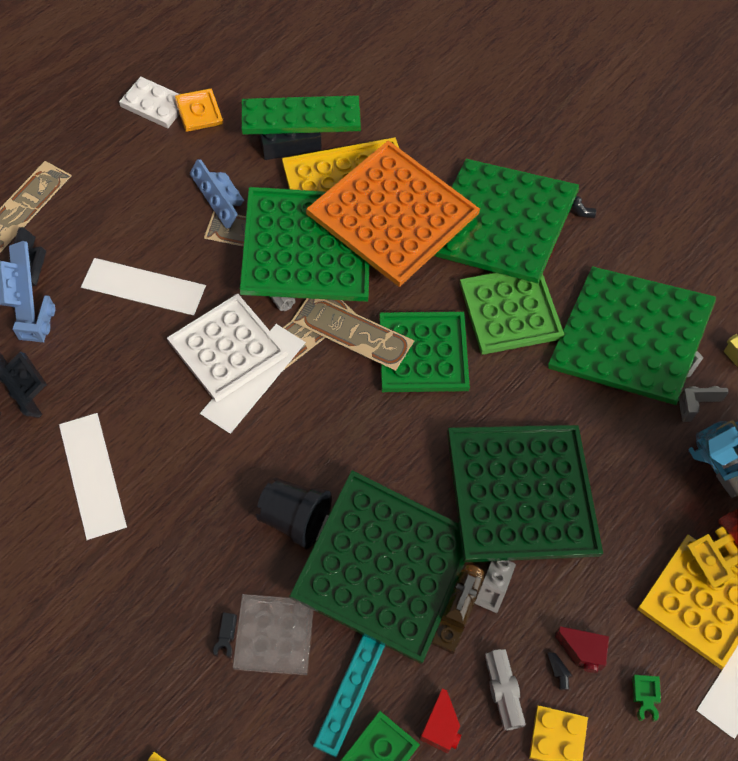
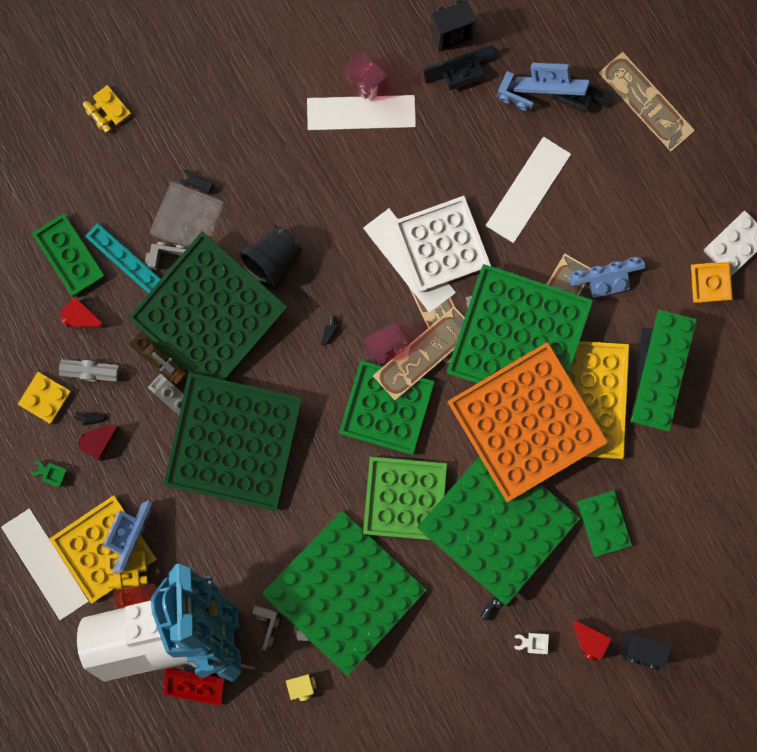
camera: 110 degrees right, 20 degrees up
(46, 471) = (365, 76): none -> clear pink brick
(336, 655) = (153, 257): none -> light grey bracket
(357, 365) = (384, 343): none -> clear pink brick
(358, 432) = (329, 330): none -> black bar
(461, 142) = (604, 523): none -> green plate
(567, 72) = (649, 651): none -> black brick
(575, 123) = (591, 641): none -> red slope
(599, 166) = (536, 643): none -> white plate
(681, 569) = (124, 533): none -> medium blue bracket

